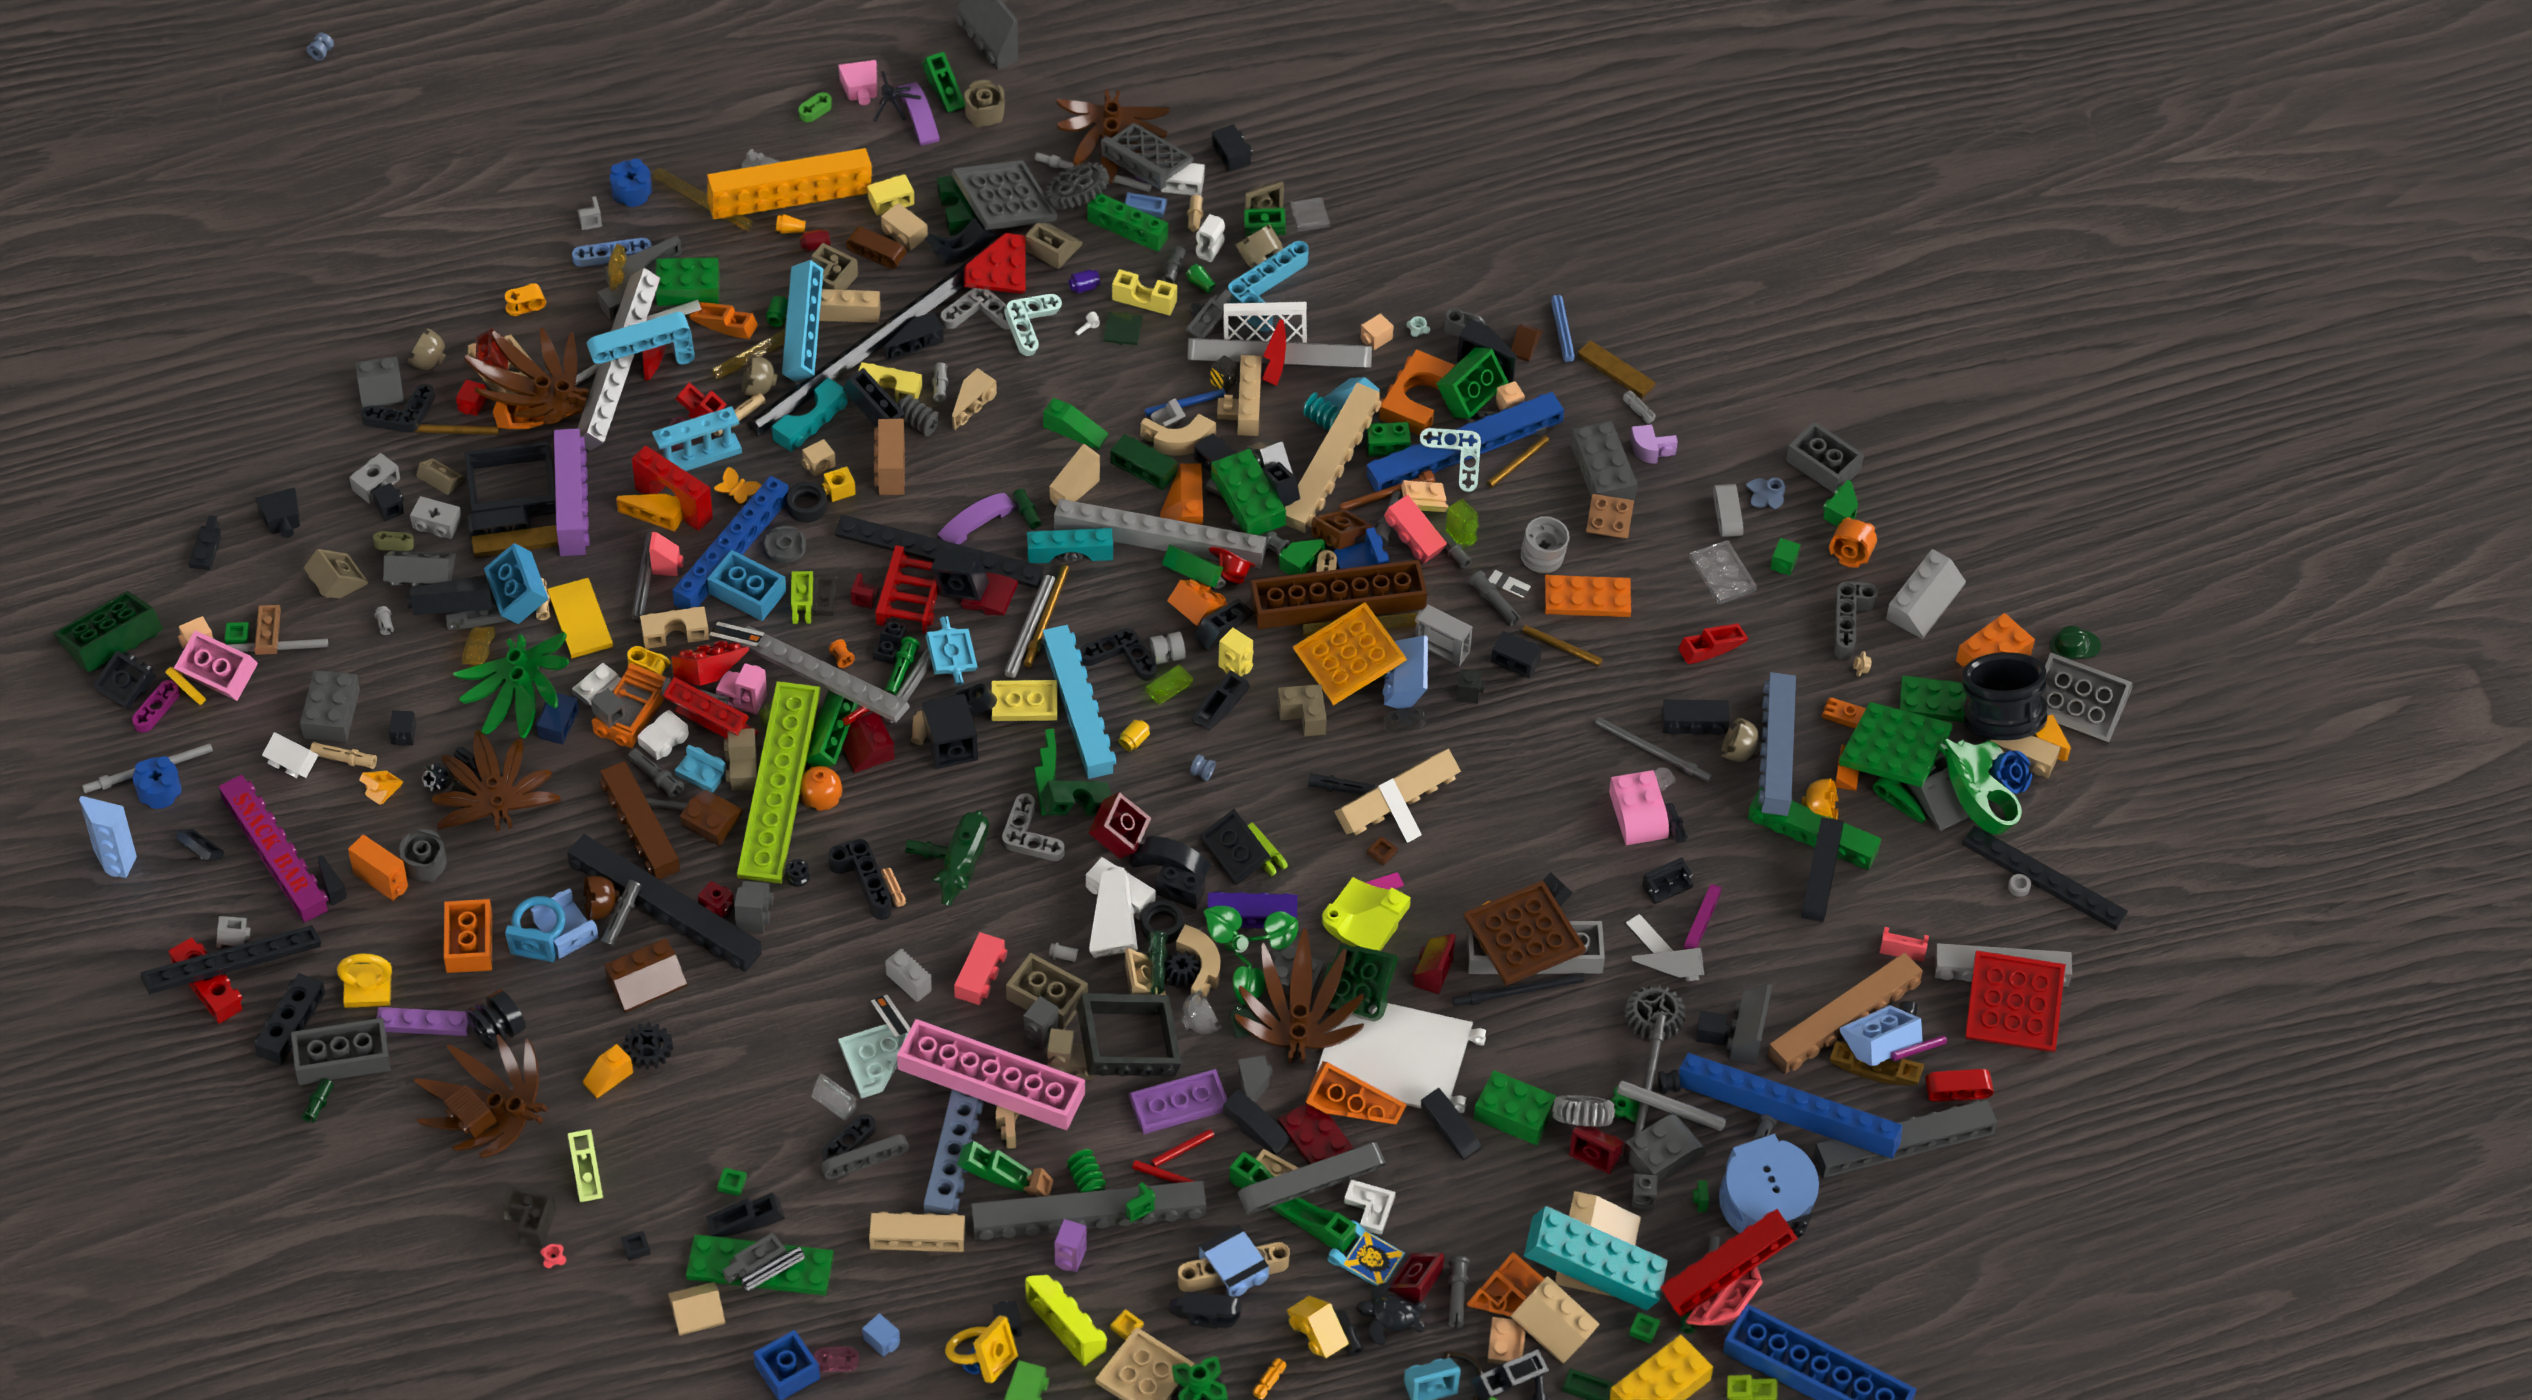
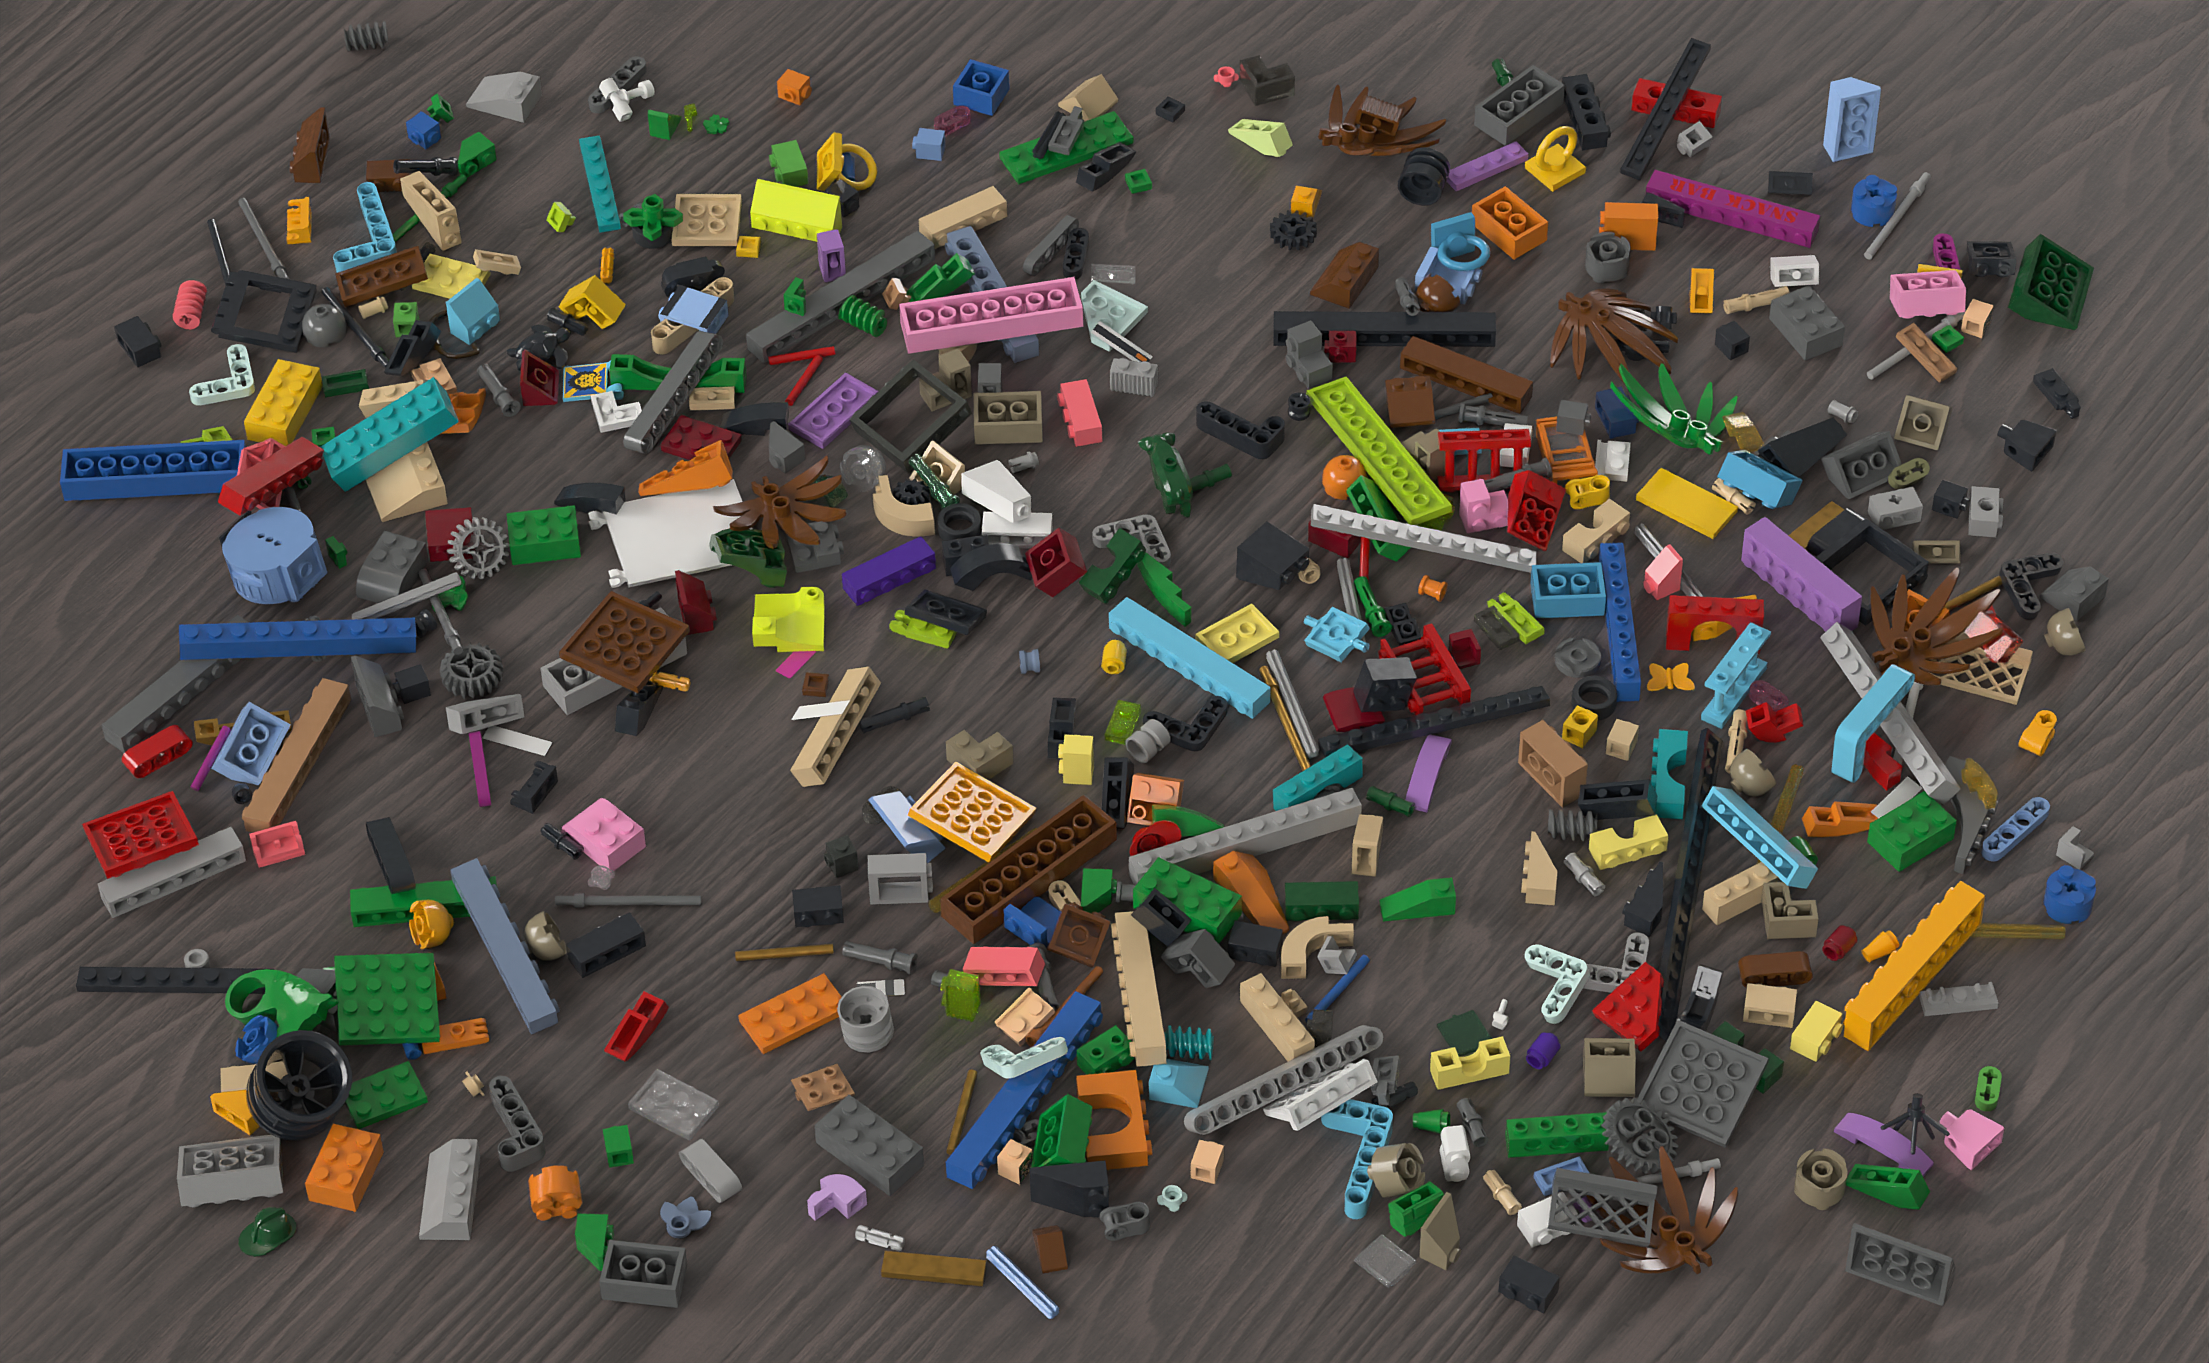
camera: 150 degrees right, 5 degrees down
(736, 633) = (1536, 551): sticker -> none
(893, 887) = (1211, 439): light nougat axle -> none
(978, 698) = (1278, 606): black piece -> none
(1222, 927) = (877, 534): green plant -> none
(1276, 354) = (1278, 1055): red slope -> none
(1644, 1191) = (388, 522): dark grey brick -> none

